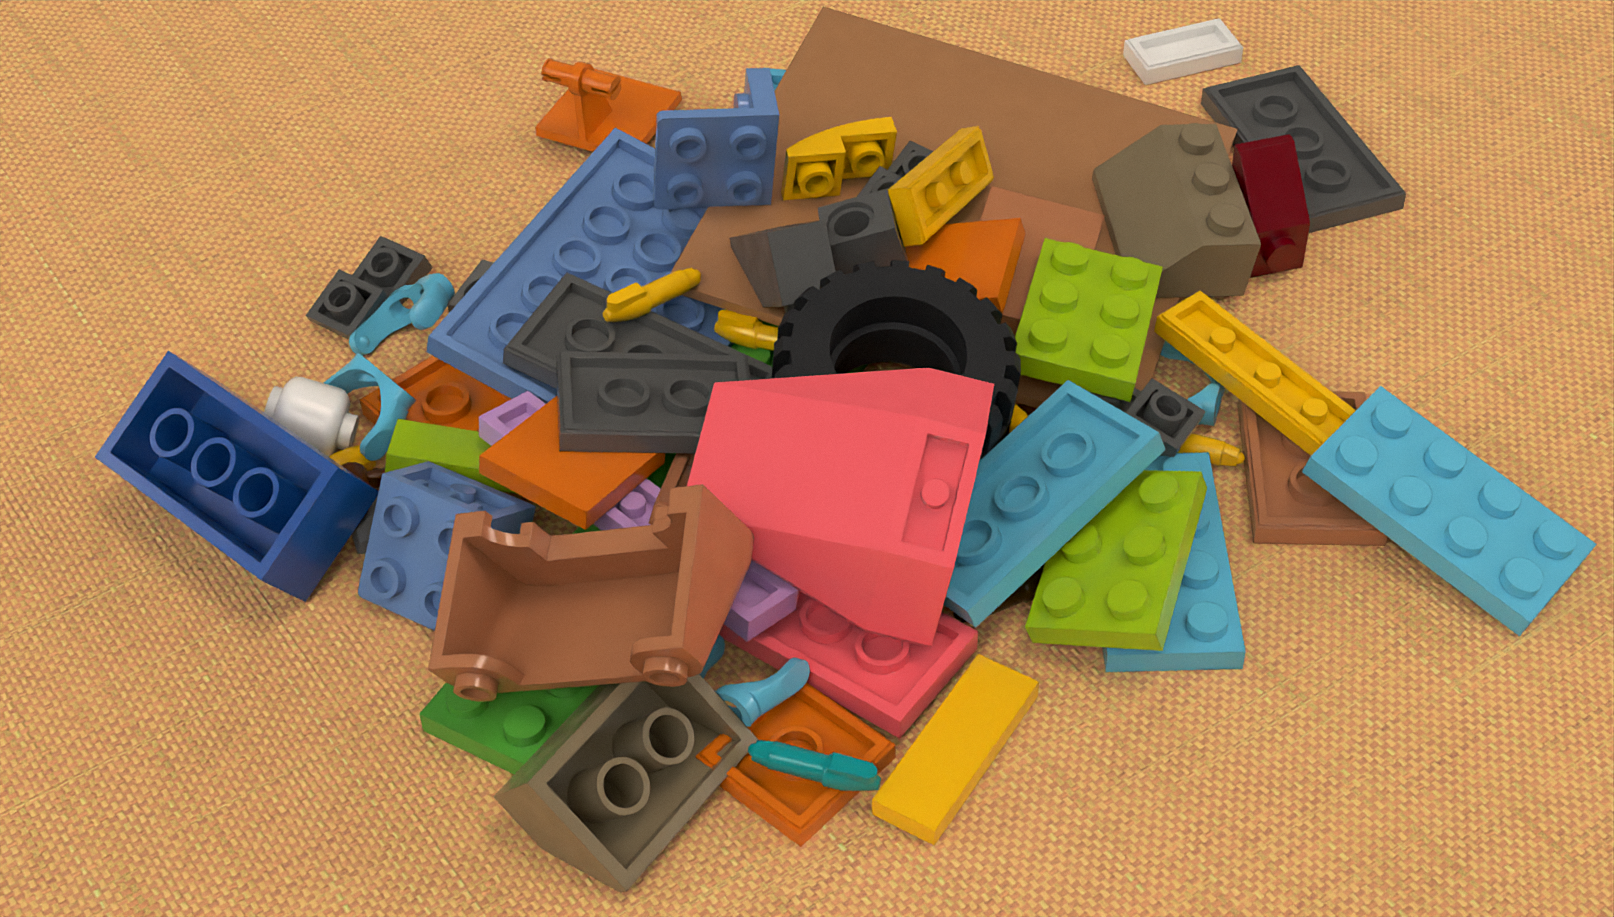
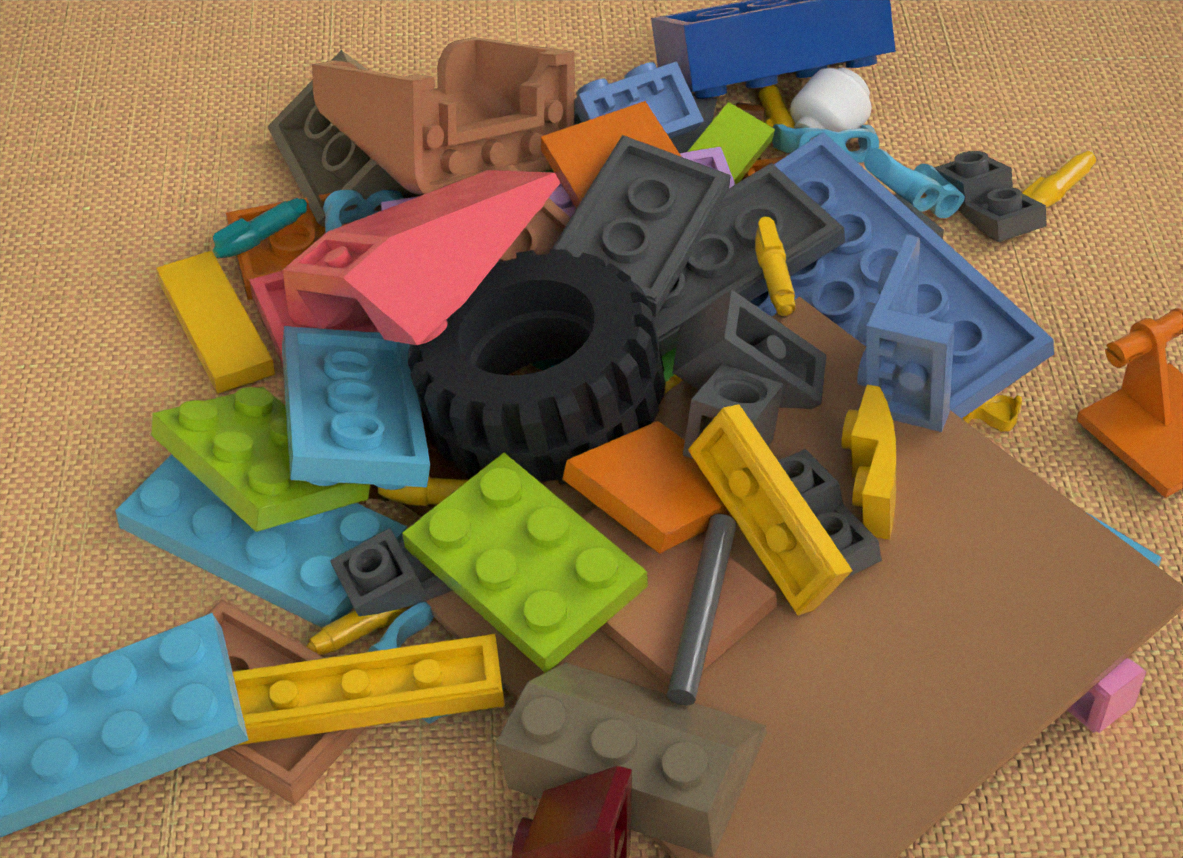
camera: 120 degrees right, 0 degrees up
(324, 261) = (1054, 187): none -> yellow piece
(1051, 206) = (701, 610): none -> dark grey bar

